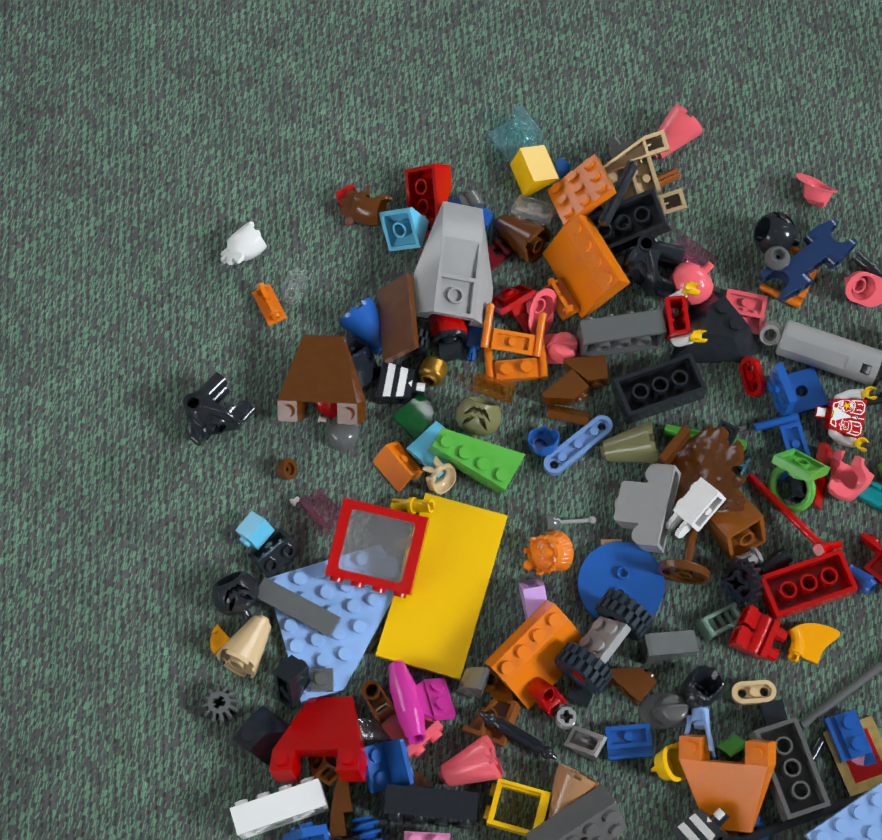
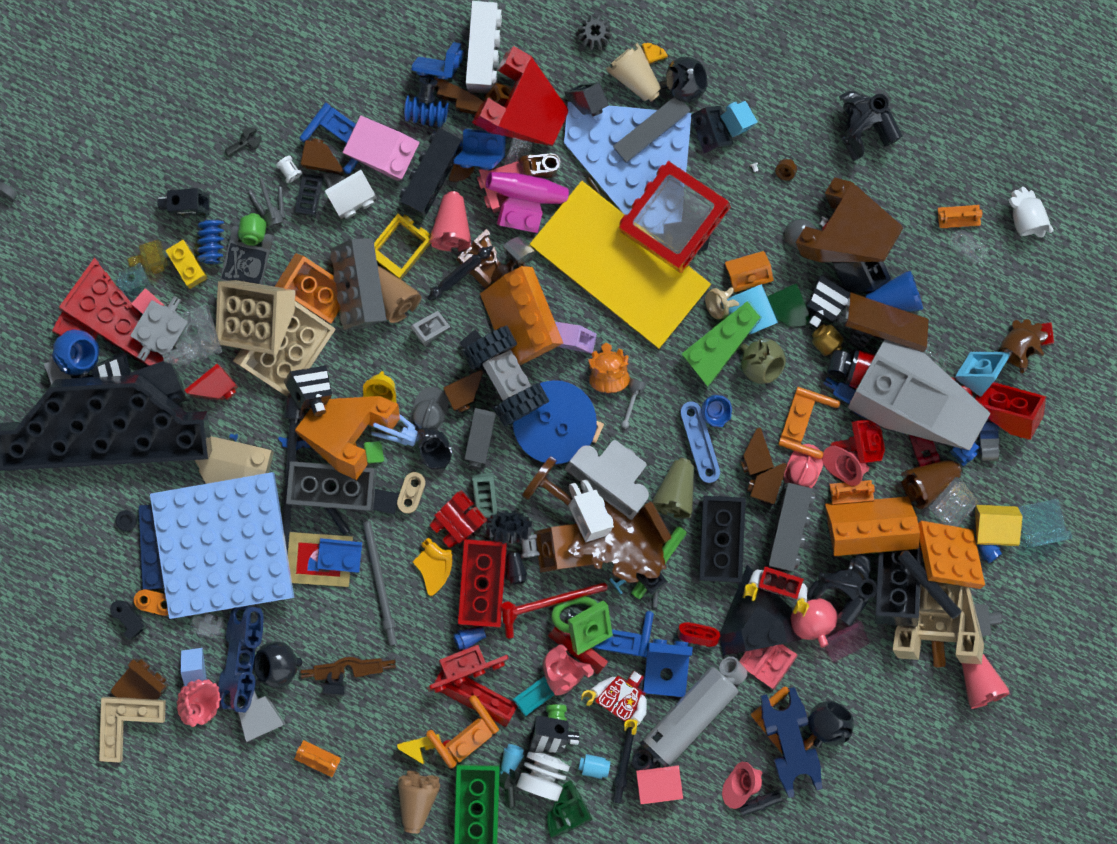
camera: 110 degrees right, 15 degrees up
(261, 734) = (554, 58): black slope -> none
(321, 510) = (735, 186): clear pink panel -> none
(322, 680) = (578, 125): dark grey plate -> none
(413, 505) = (703, 267): yellow pin -> none
(494, 387) = (788, 390): clear orange tile -> none
(510, 340) = (824, 424): orange plate -> none
(546, 696) = (483, 310): red piece -> none
(568, 414) = (733, 446): reddish brown tile -> none
(570, 713) = (460, 326): light grey bush -> none
(628, 742) = (415, 365): blue plate -> none
(777, 263) = (796, 703): dark grey plate -> none
(815, 191) = (865, 791): coral piece -> none

